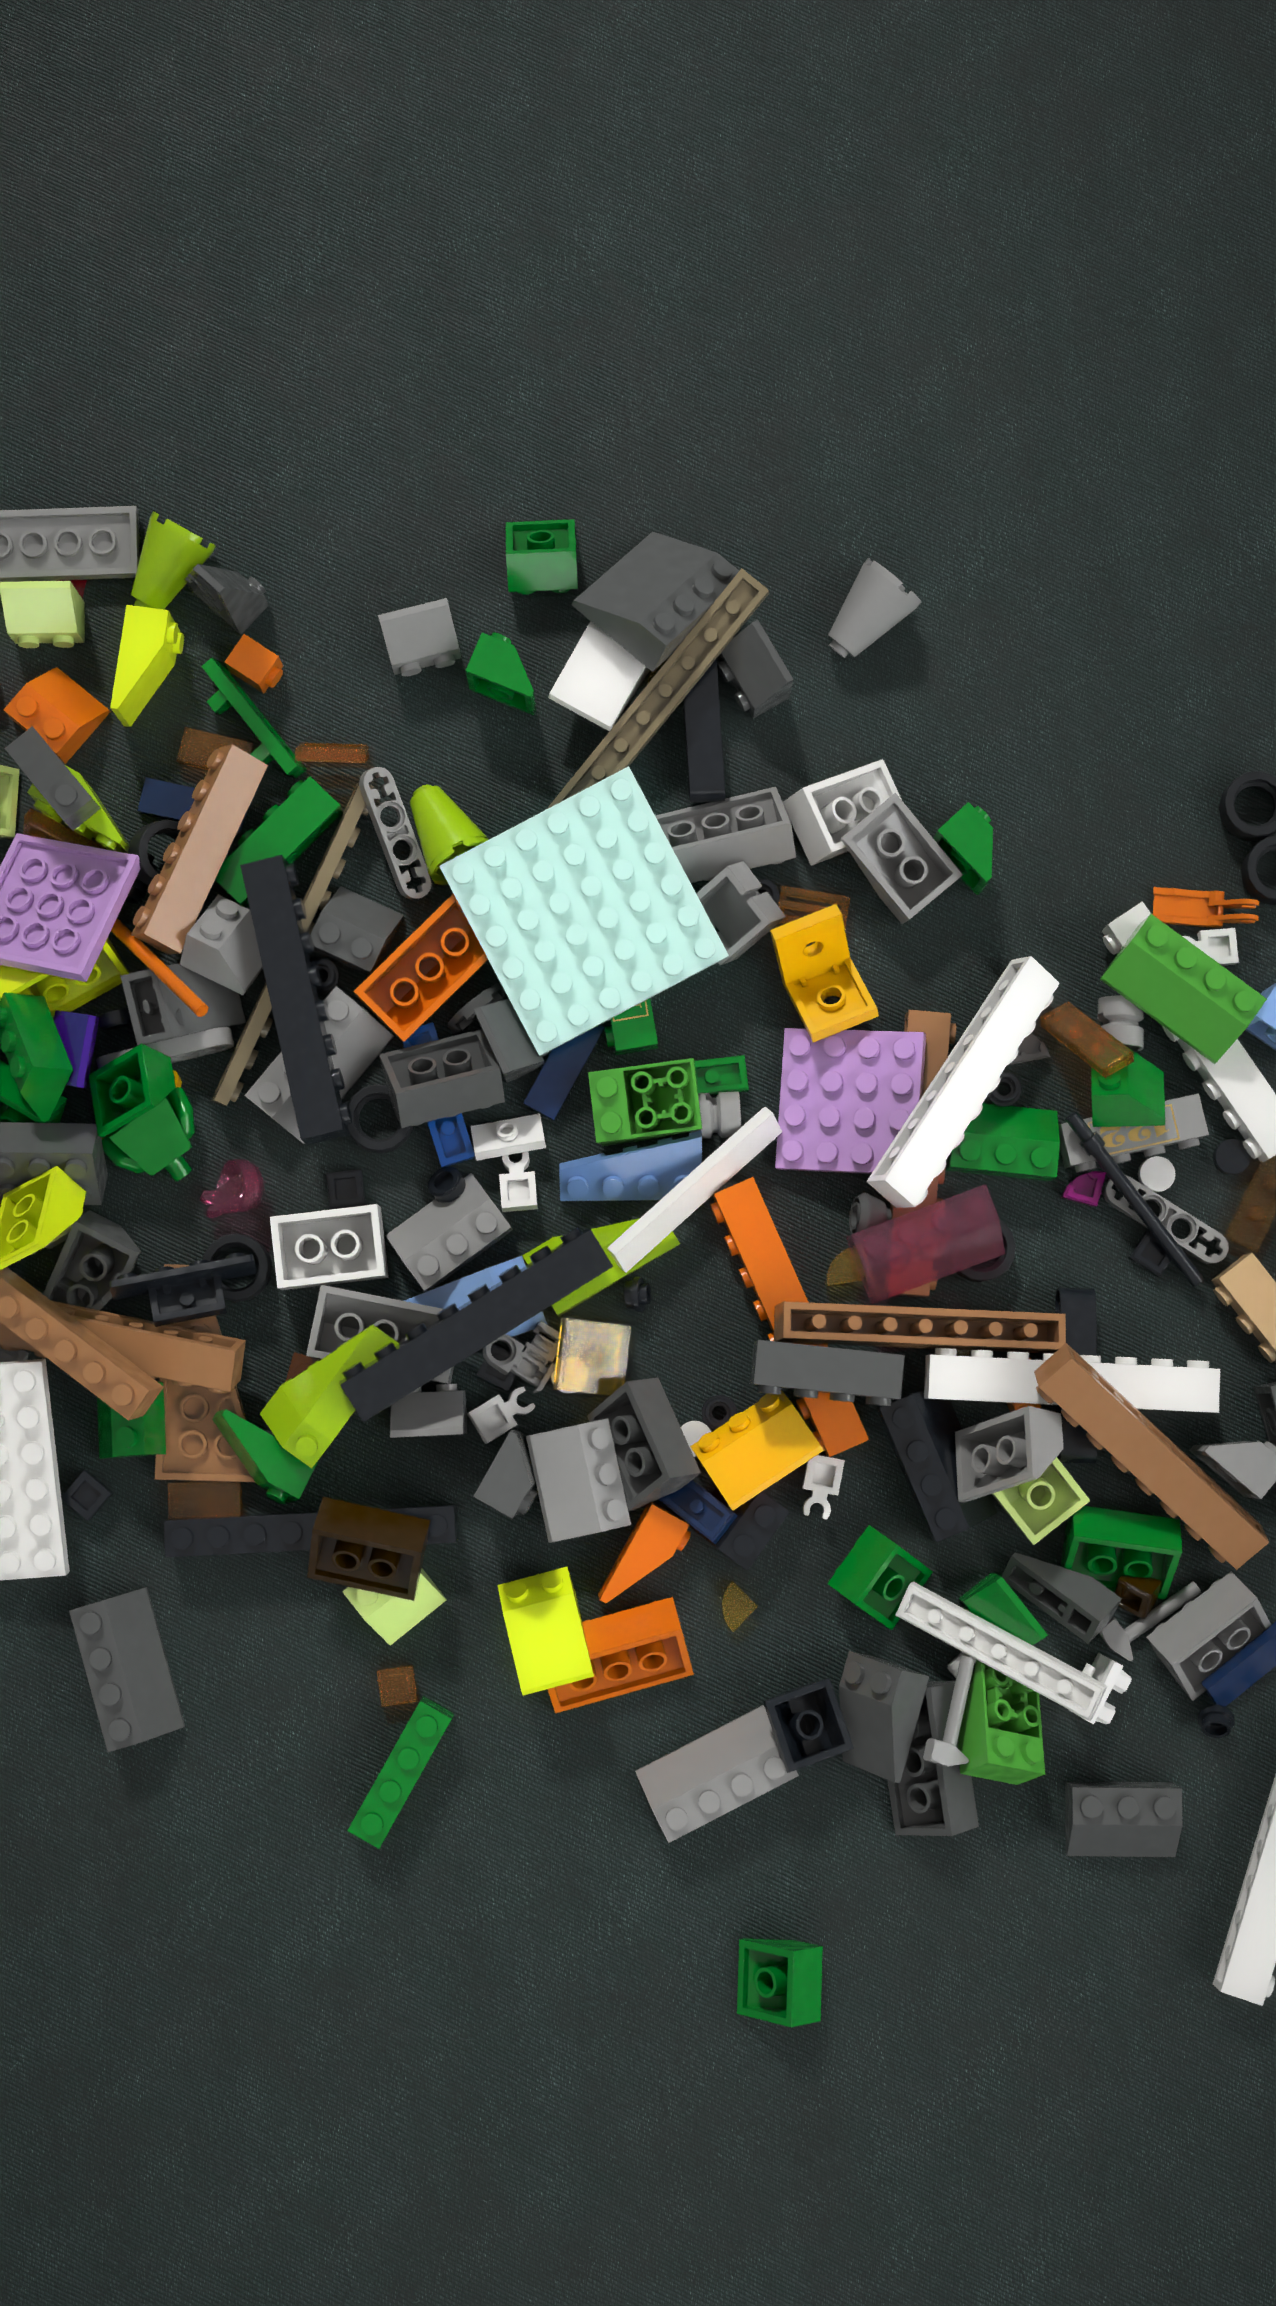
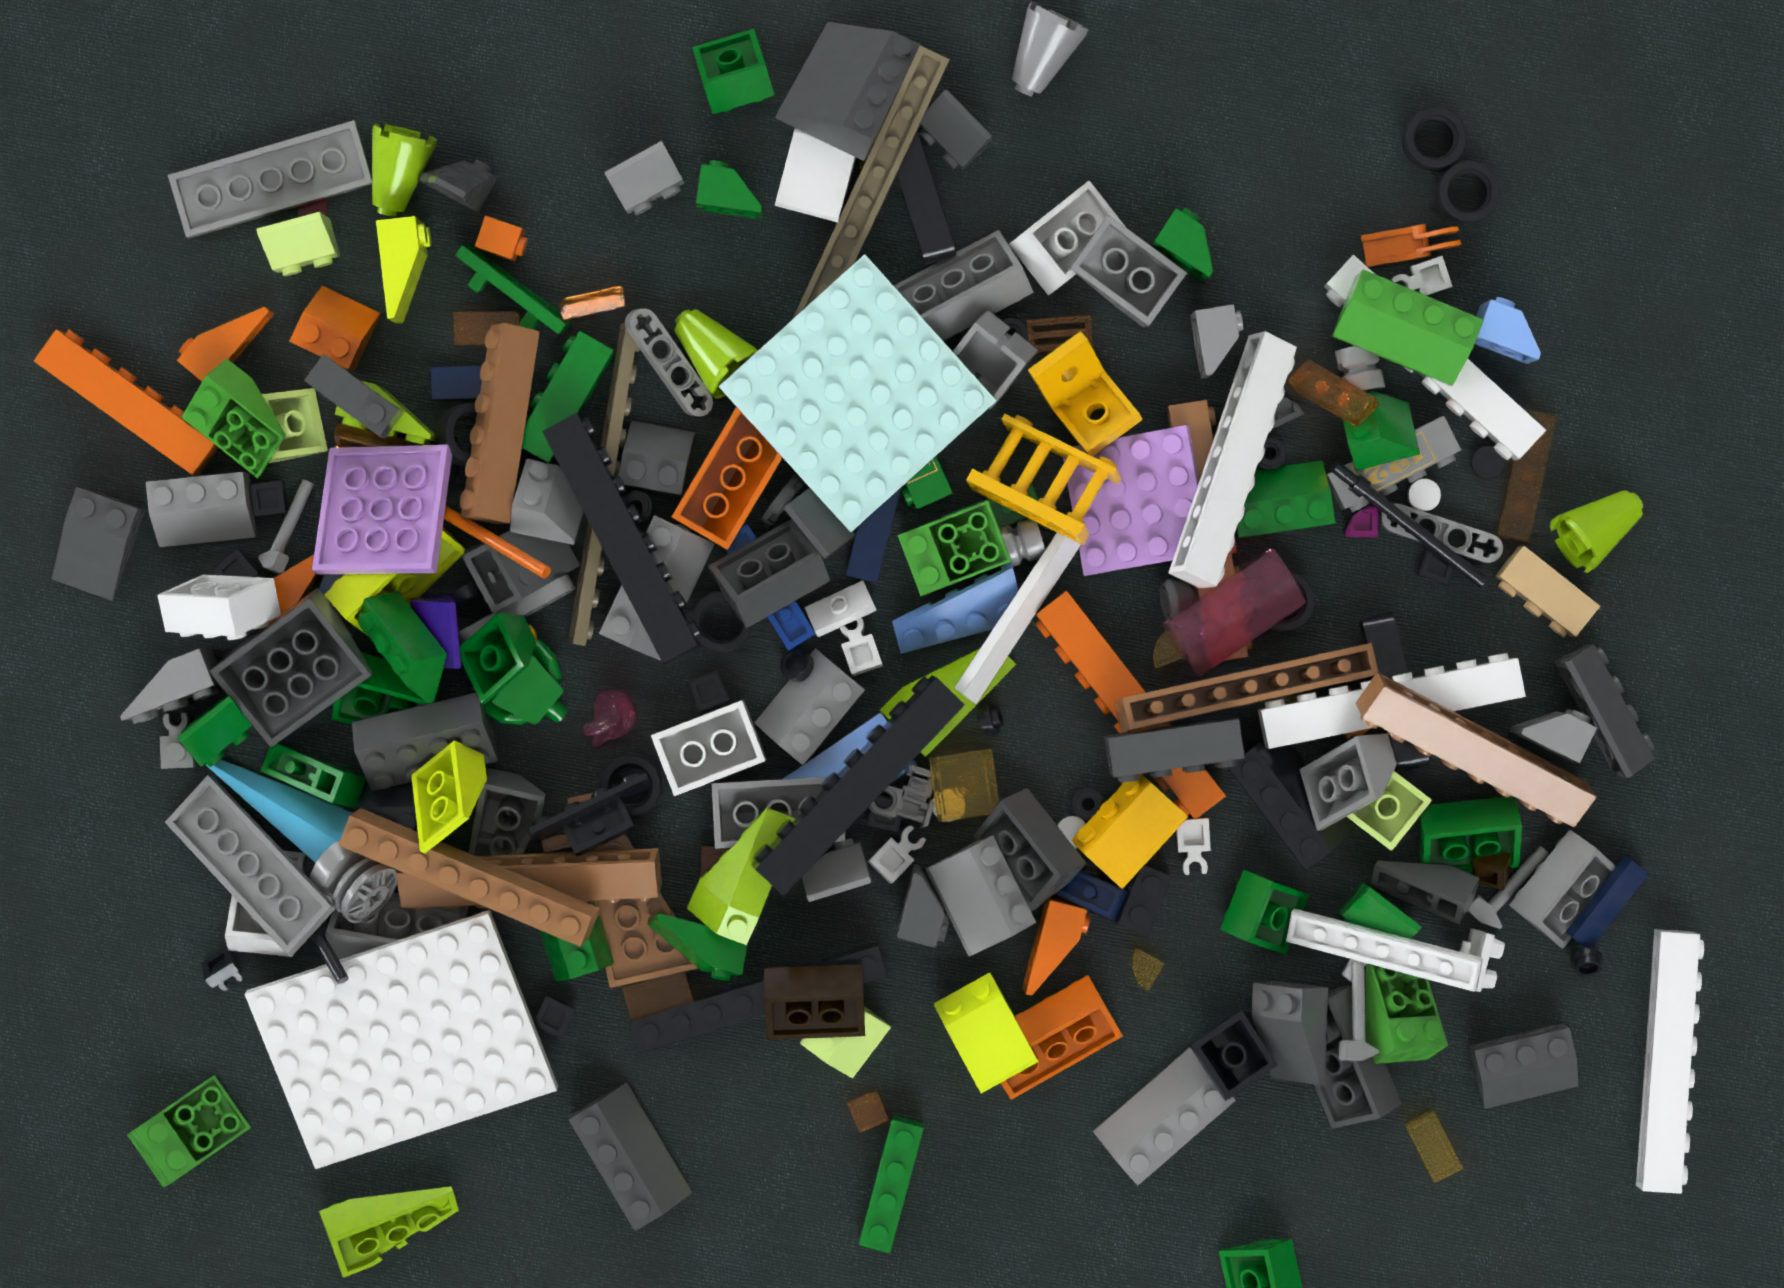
camera: 15 degrees left, 5 degrees up
(137, 1308) = (555, 843): none -> clear orange tile
(750, 1083) = (1044, 509): none -> yellow fence
(975, 947) = (1214, 335): none -> light grey slope
(1001, 1883) = (1433, 1146): none -> clear yellow tile

